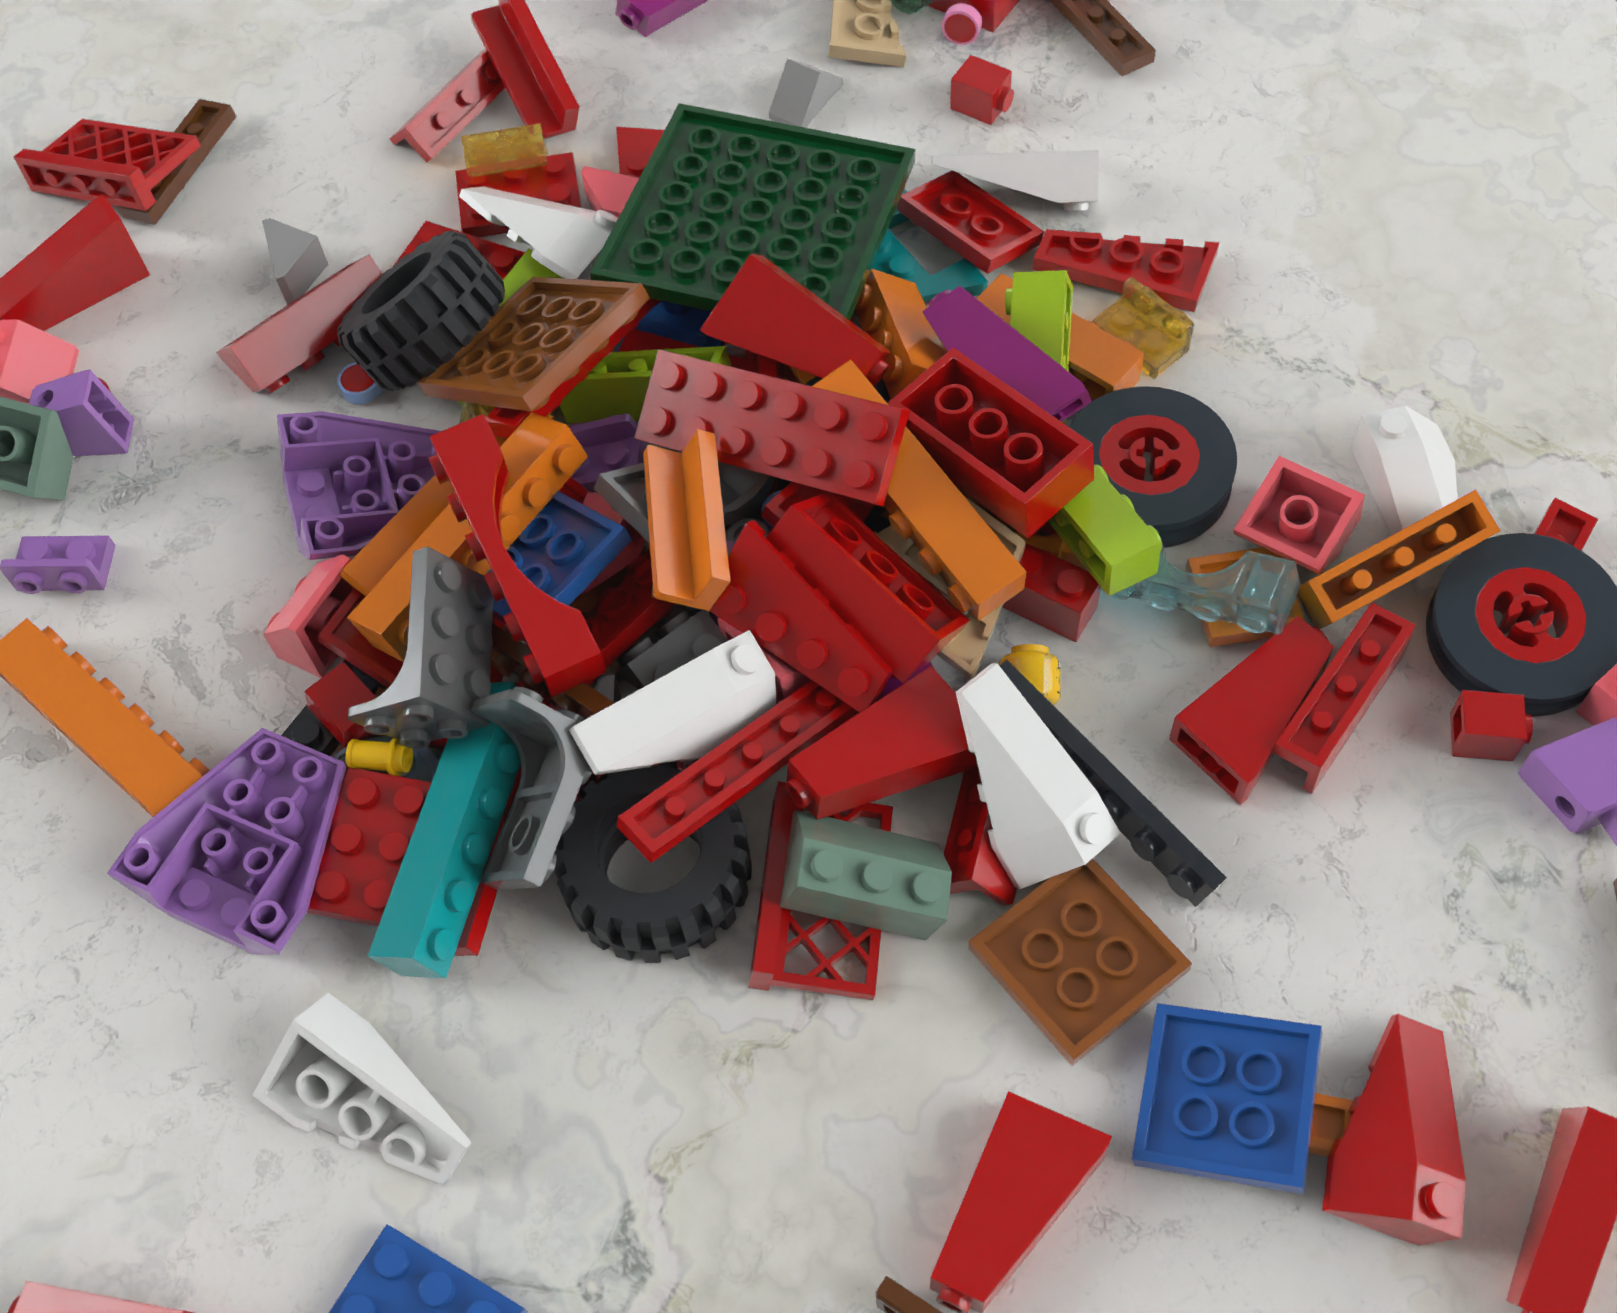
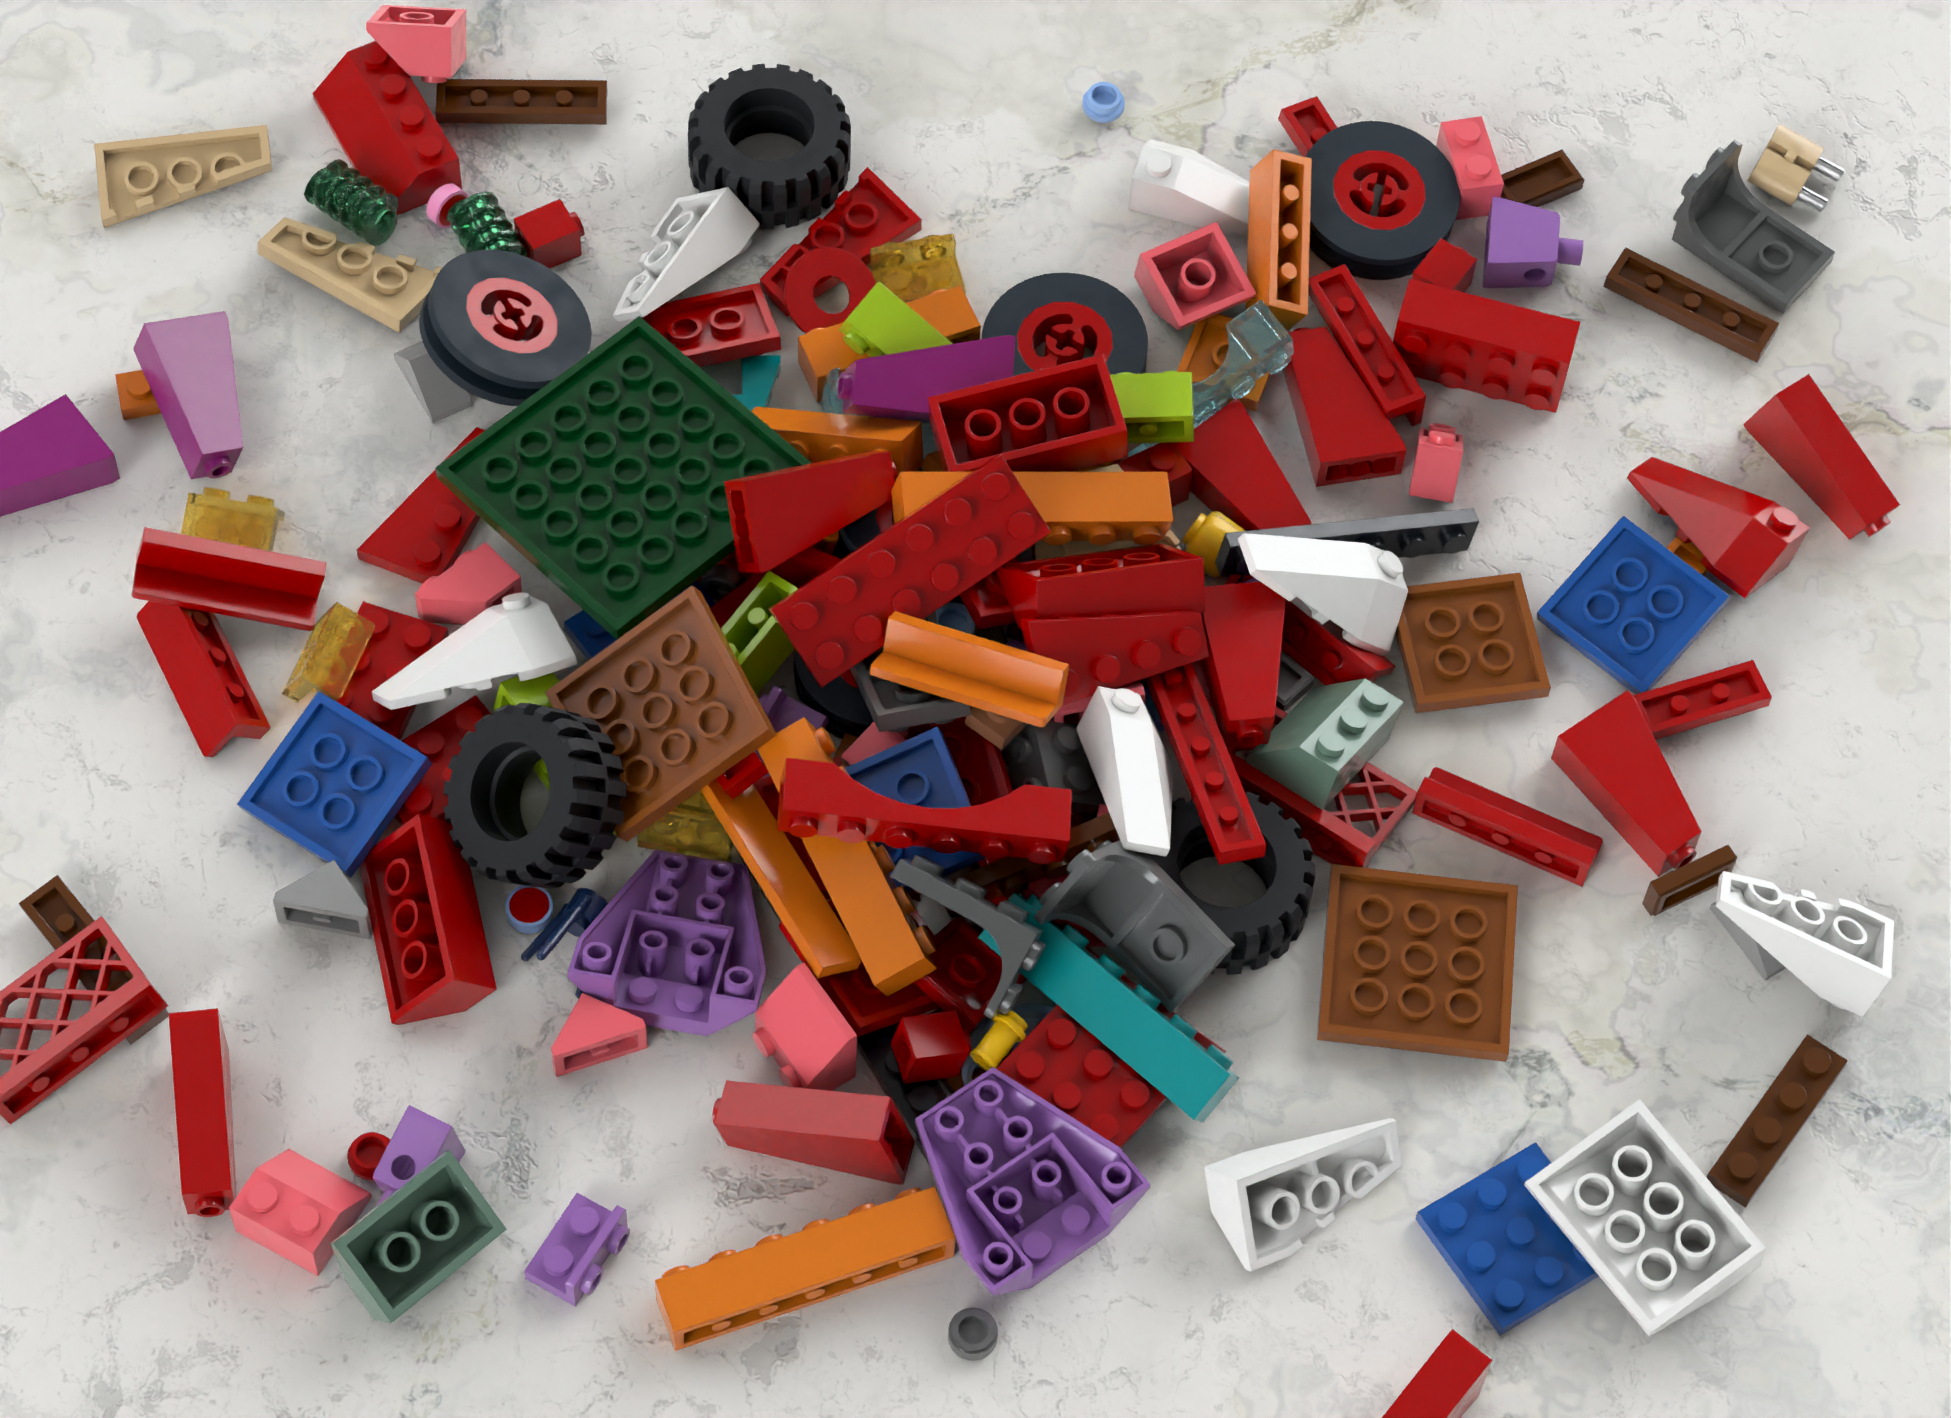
camera: 70 degrees left, 0 degrees up
(96, 891) = (972, 1333): none -> flat silver tile
(230, 663) = (817, 1128): none -> slope
(255, 472) = (595, 1035): none -> coral slope
(355, 405) = (572, 918): none -> dark blue plant
(390, 208) = (334, 783): none -> blue plate
(589, 50) = (232, 521): none -> clear yellow bracket
(675, 1089) = (1418, 963): none -> dark orange plate
(838, 65) = (523, 304): none -> black wheel
(894, 1102) = (1507, 825): none -> red panel
(926, 813) = (1292, 682): none -> flat silver tile
(944, 55) = (483, 225): none -> clear green piece
(1092, 257) = (811, 268): none -> red gear
(1119, 662) = (1239, 473): none -> red slope
(1167, 1226) = (1704, 699): none -> red plate
(1186, 131) = (771, 103): none -> black tyre
(1264, 823) = (1436, 463): none -> coral slope
(1428, 795) = (1485, 345): none -> red brick
(1441, 369) = (1103, 102): none -> light blue plate

